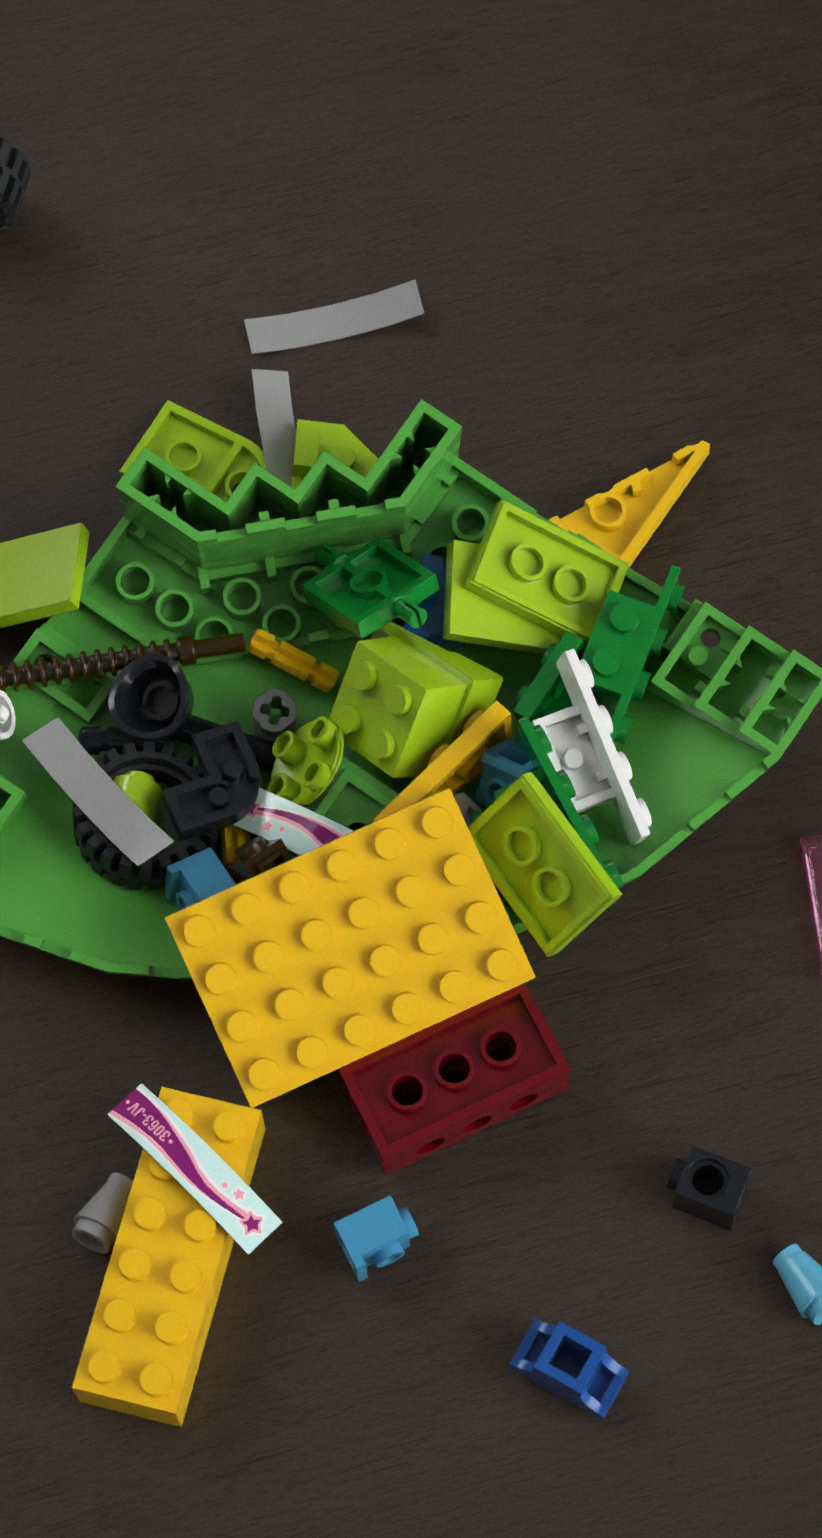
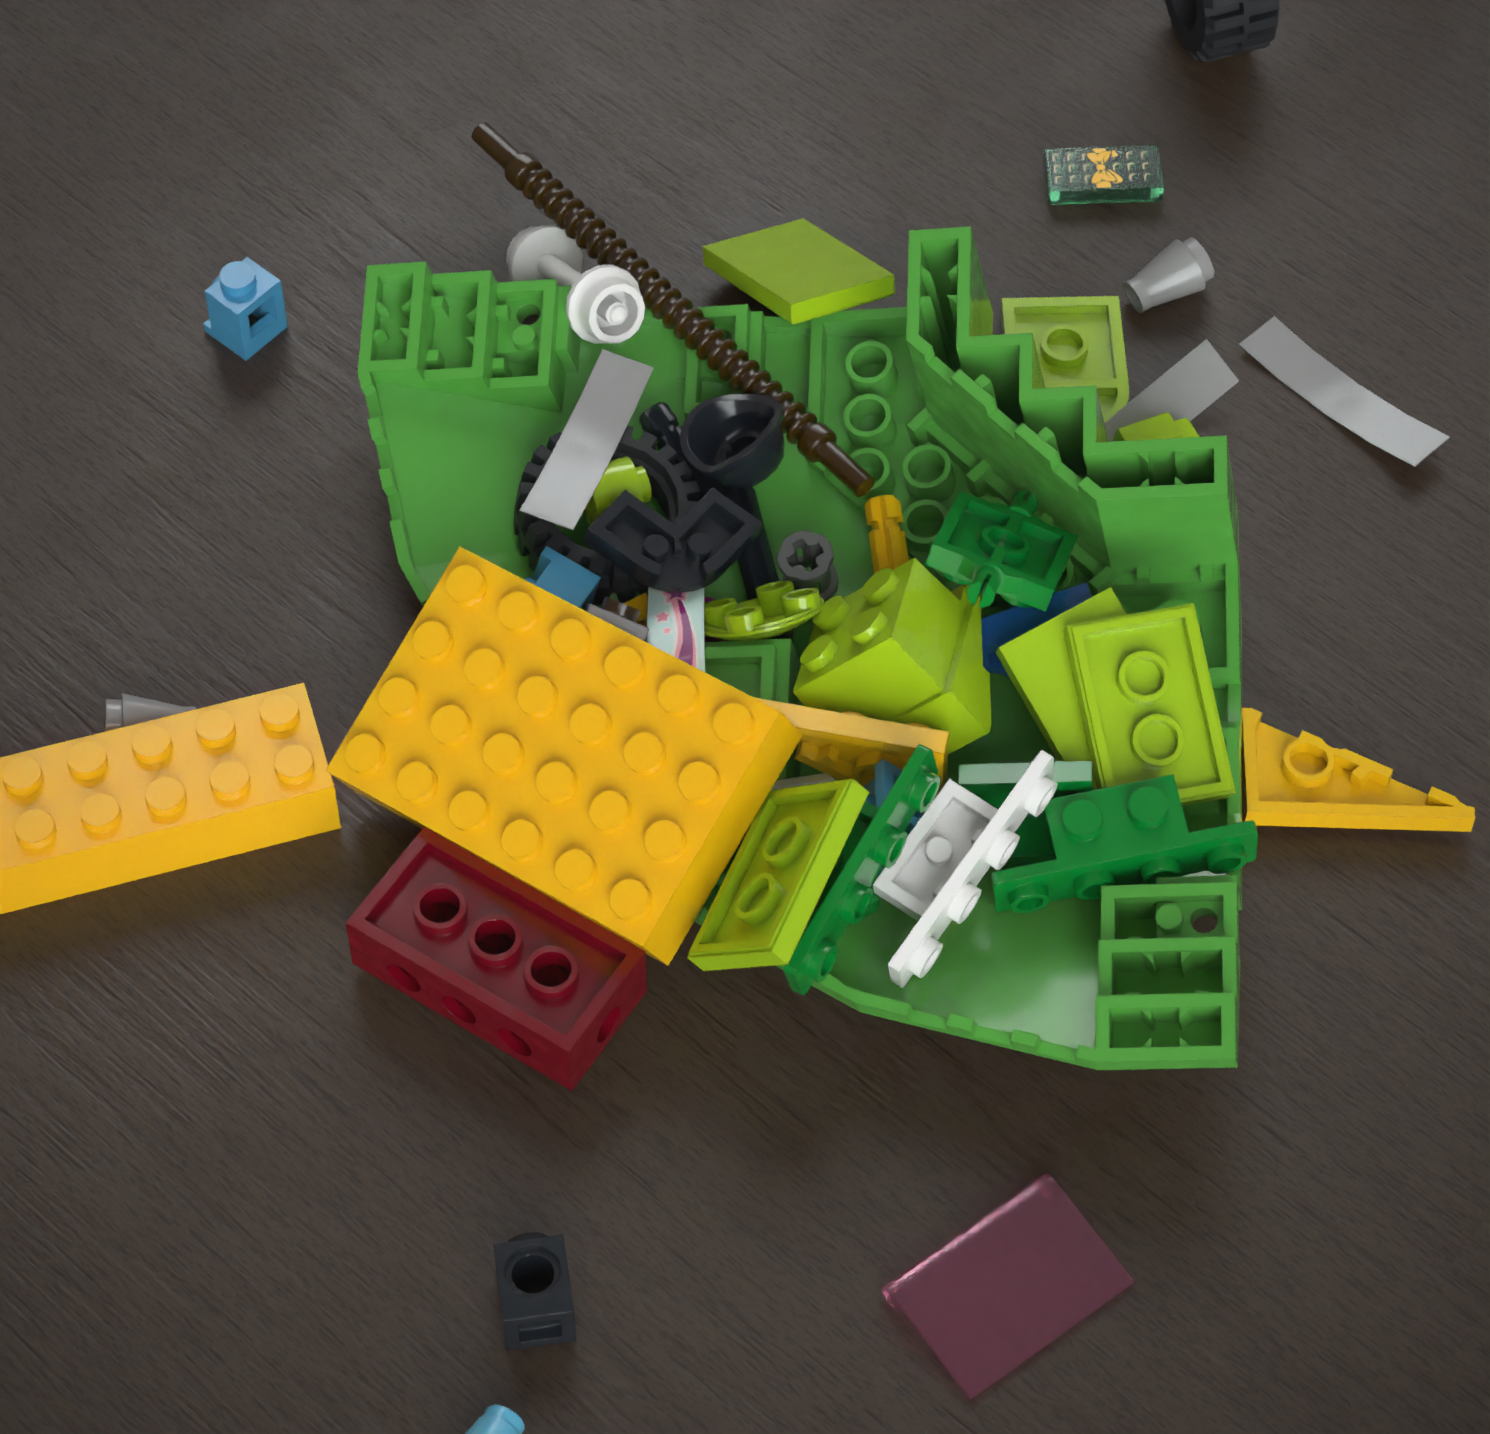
camera: 55 degrees right, 10 degrees down
(54, 348) = (1103, 174): none -> clear green tile
(173, 358) = (1172, 274): none -> light grey cone
(196, 1167) = (224, 759): sticker -> none
(375, 1235) = (267, 981): dark azure brick -> none
(570, 1366) = (225, 1256): blue brick -> none

